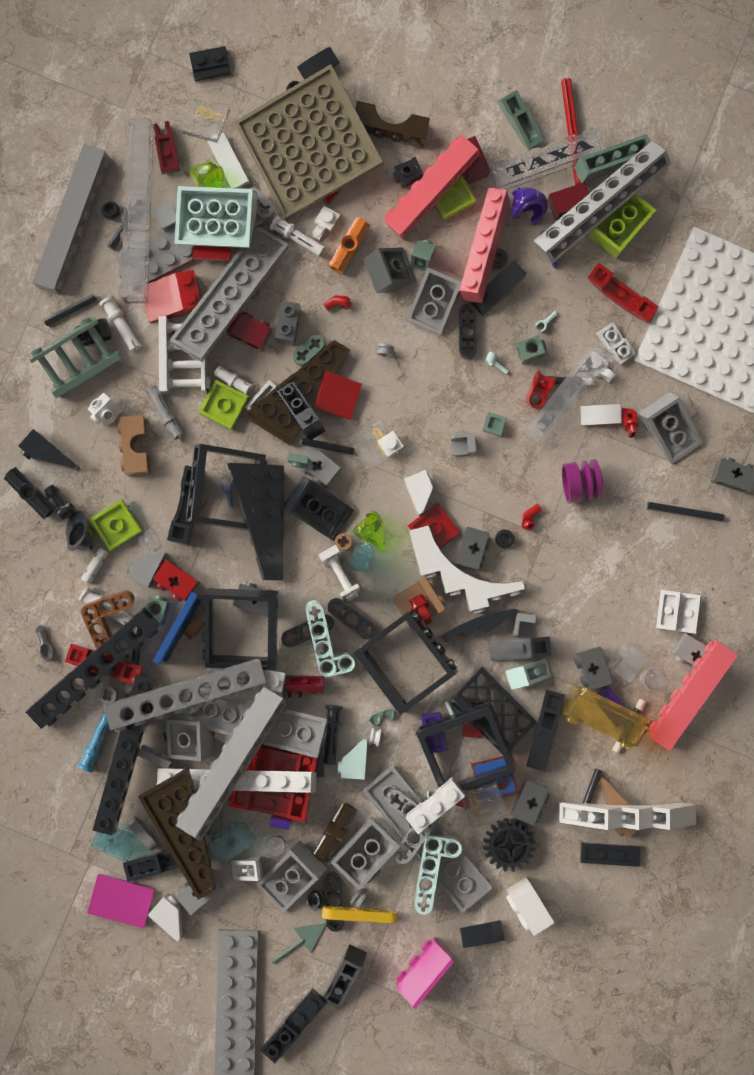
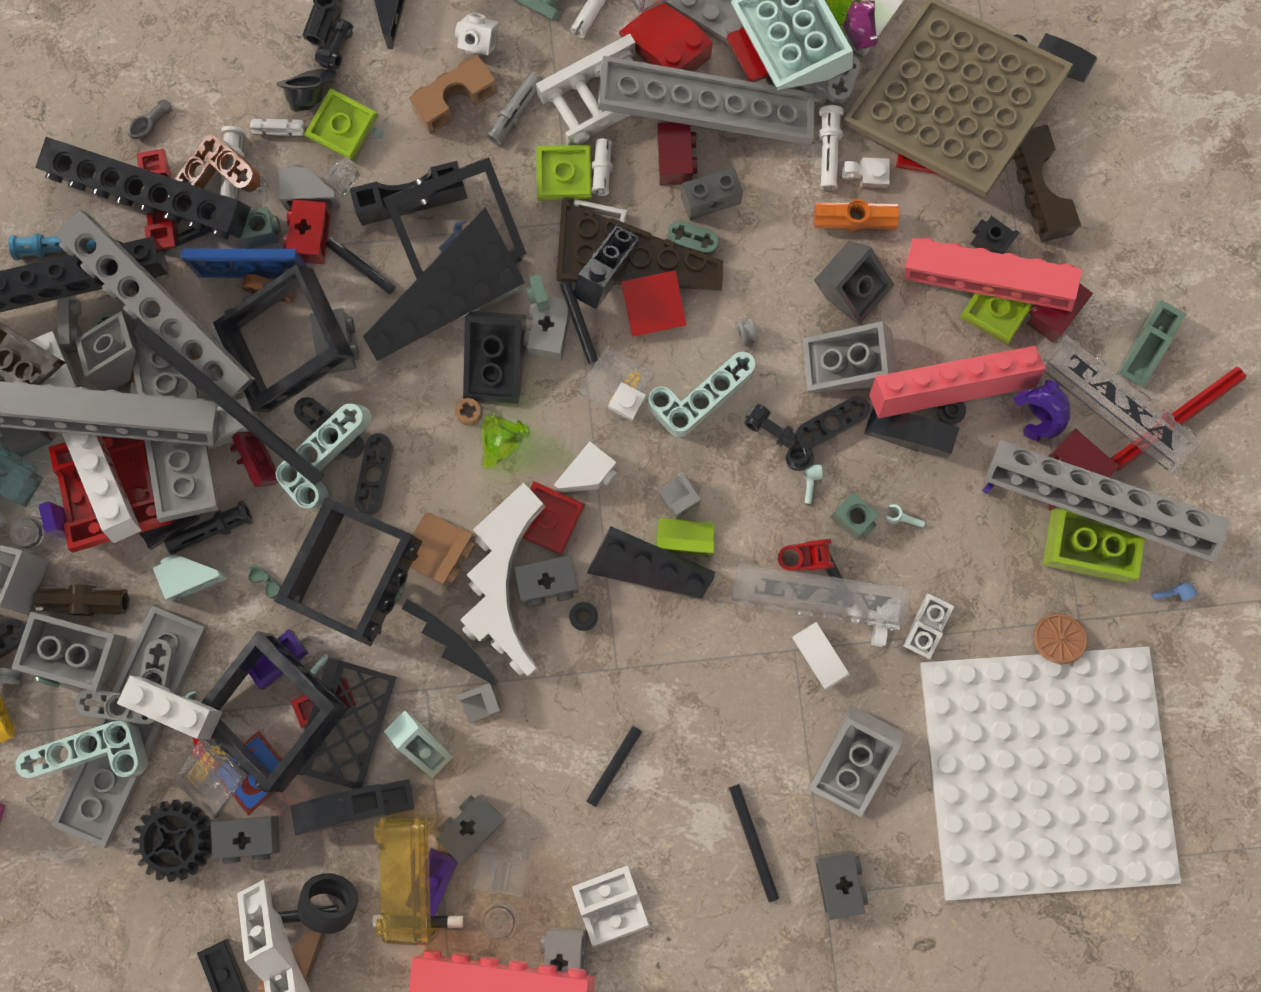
camera: 60 degrees right, 5 degrees down
(114, 696) = (122, 220): light grey bush -> none
(215, 559) = (360, 265): none -> black bar
(231, 174) = (860, 24): none -> magenta hair
(269, 680) = (227, 403): none -> black piece
(331, 557) = (416, 418): white fence -> none
(340, 300) = (777, 240): red arm -> none
(362, 557) = (455, 442): clear light blue brick -> none
(375, 737) = (231, 585): white bush -> none
(409, 393) = (704, 391): none -> light aqua beam
(420, 605) = (433, 552): red piece -> none
(422, 255) = (898, 310): sand green slope -> none
(441, 372) = (758, 418): none -> black bar
(475, 359) = (799, 457): none -> black plate
(482, 934) = (35, 867): black slope -> none
(489, 454) = (686, 537): none -> lime panel
(491, 488) = (642, 563): none -> black wing
(494, 424) = (728, 521): sand green plate -> none
(520, 649) = (445, 715): slope -> none
(528, 517) = (629, 633): red arm -> none
(528, 907) = (93, 910): white brick -> none
(577, 481) = (714, 676): magenta wheel -> none
(600, 567) = (614, 766): none -> black bar
(602, 779) = (322, 921): none -> black tyre
(609, 159) = (1164, 477): sand green brick -> none
(621, 294) = (999, 596): red slope -> none
(630, 424) = (829, 700): red piece -> none
(663, 273) = (1060, 638): none -> nougat wheel
(673, 187) = (1186, 591): none -> medium blue hand

